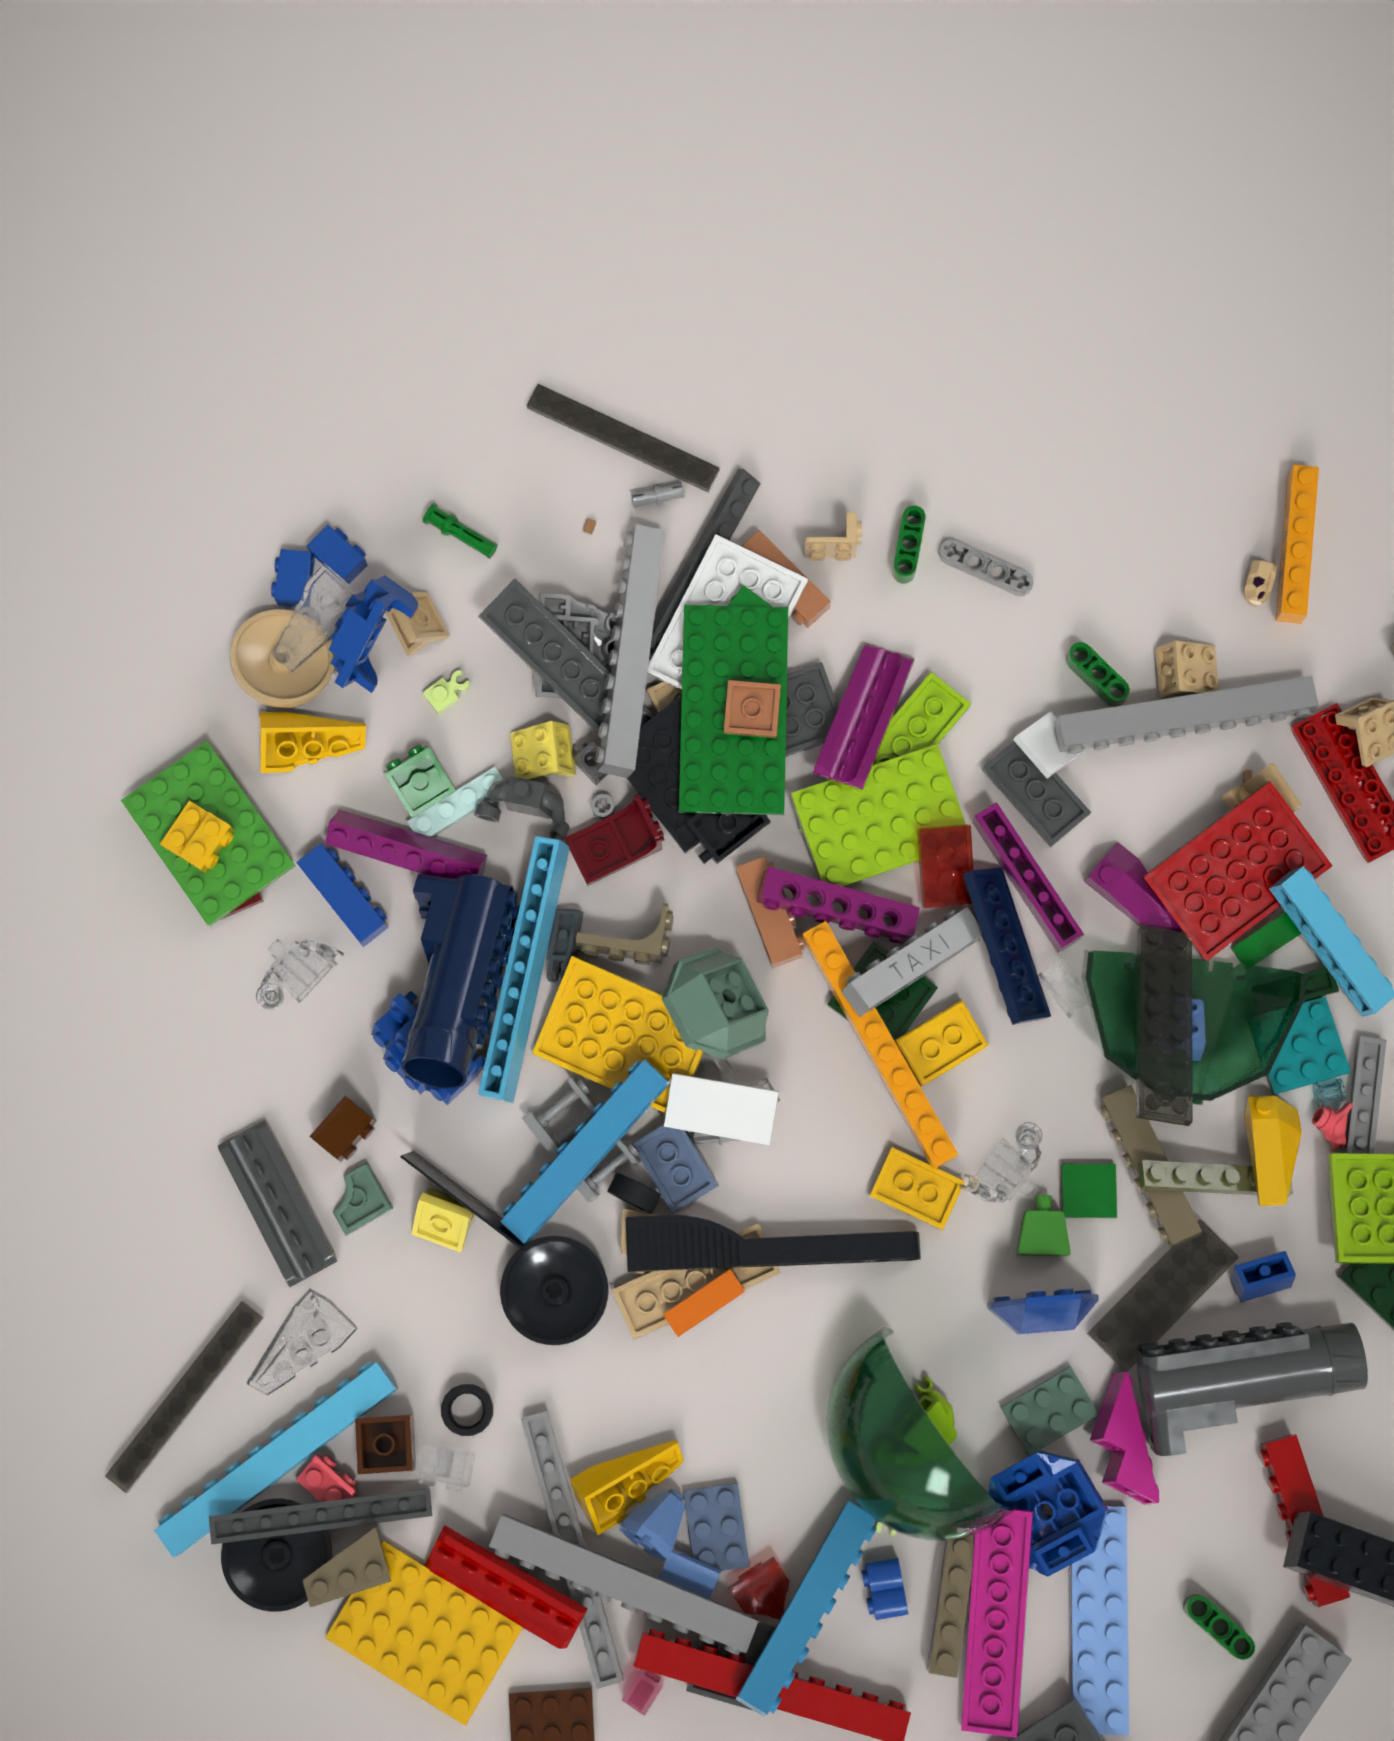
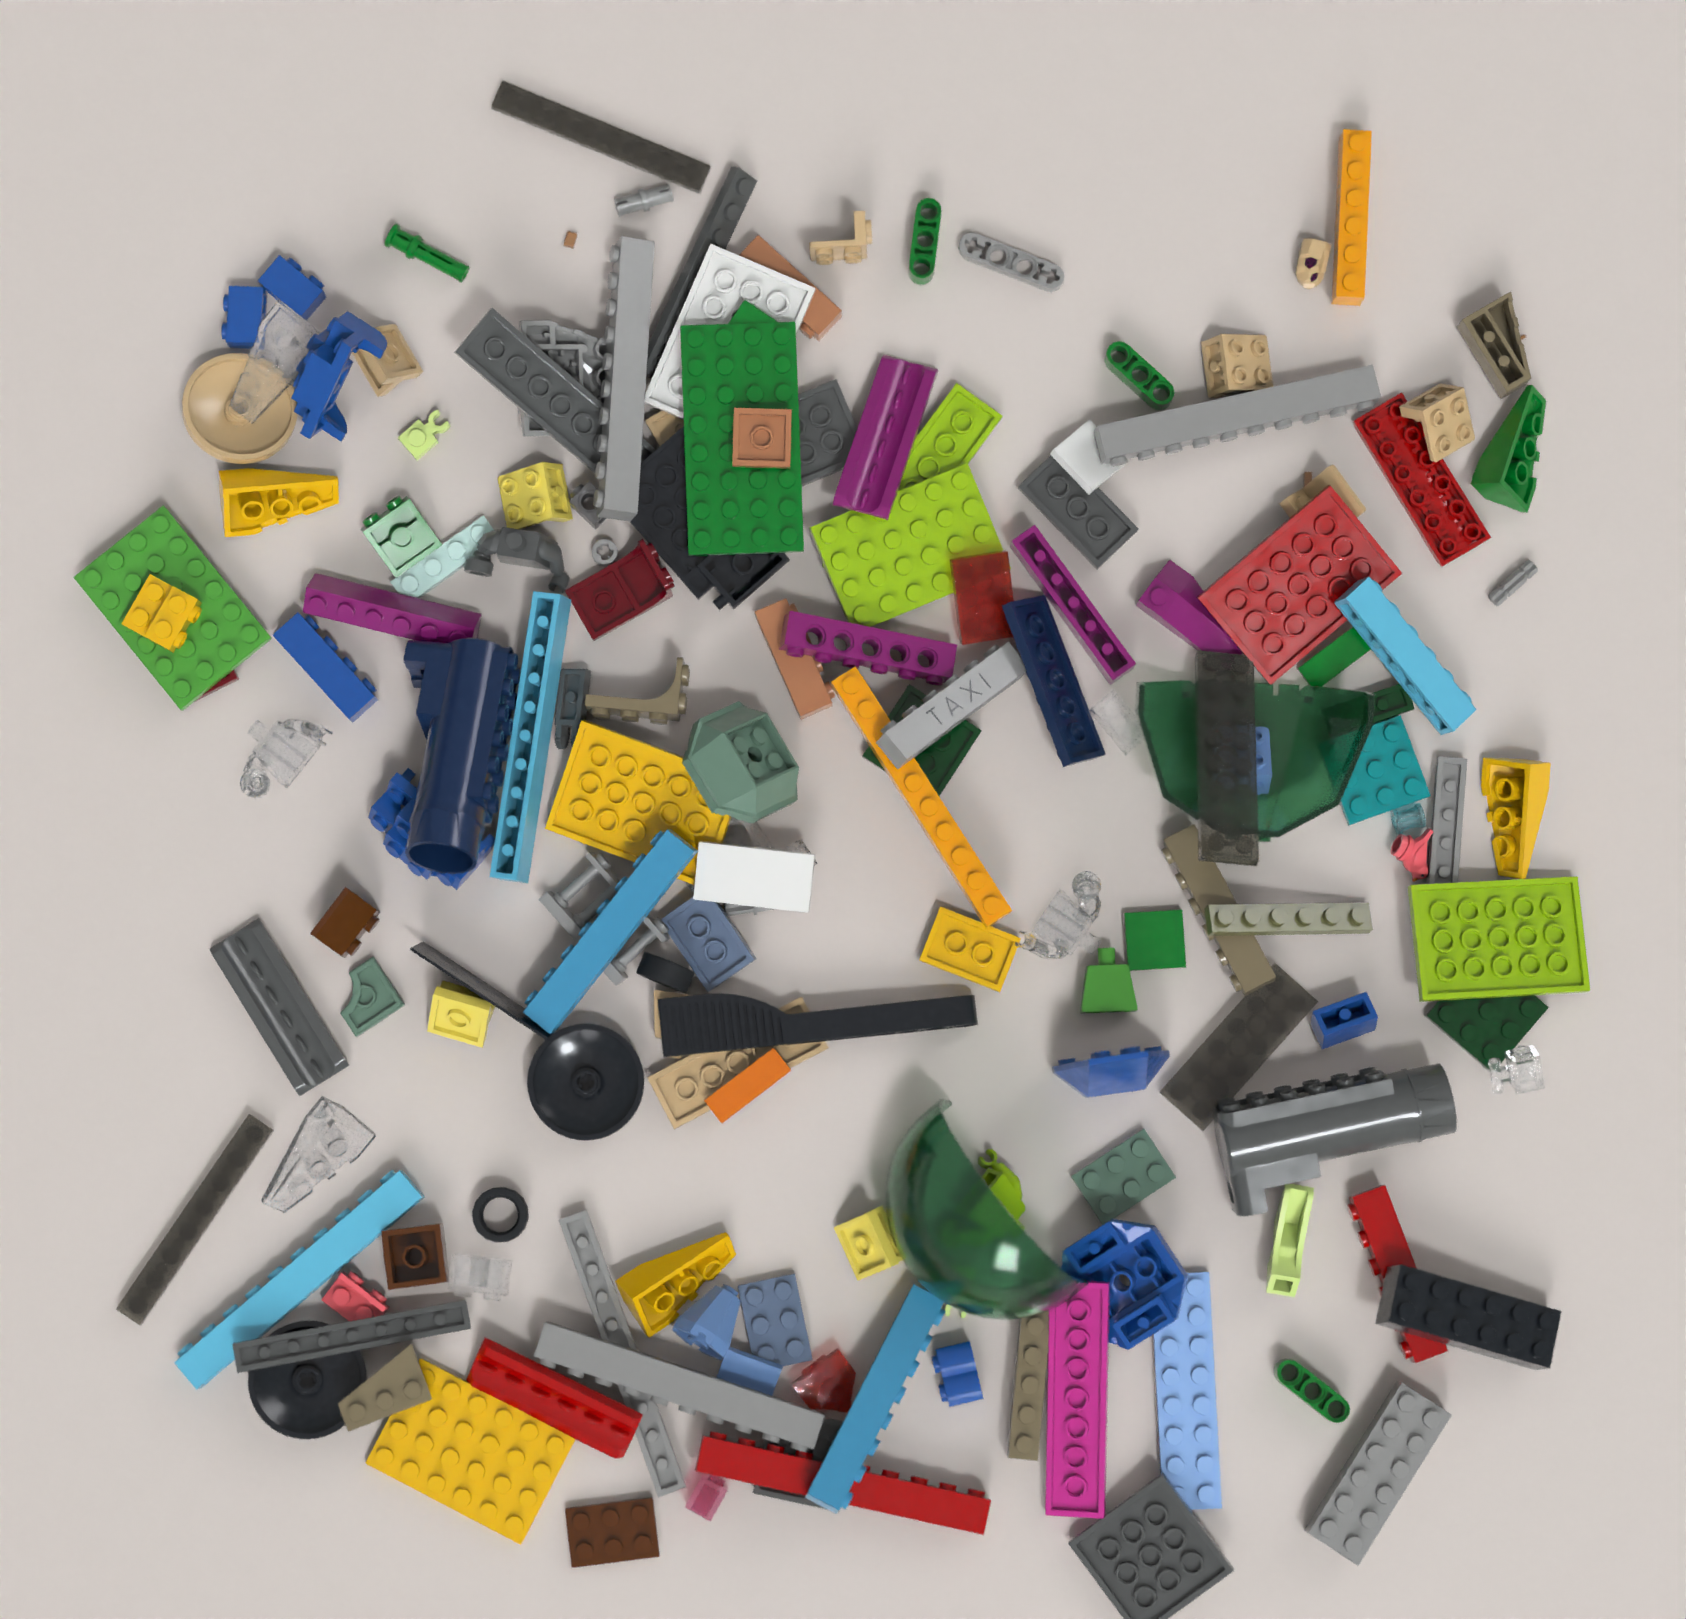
camera: 10 degrees left, 5 degrees up
(808, 1459) = (868, 1243): none -> light yellow bracket
(941, 1043) = (988, 790): yellow tile -> none
(1121, 1432) = (1199, 1194): dark pink slope -> none
(1203, 1481) = (1289, 1239): none -> yellowish green arch
(1273, 1144) = (1350, 877): yellow wedge -> none

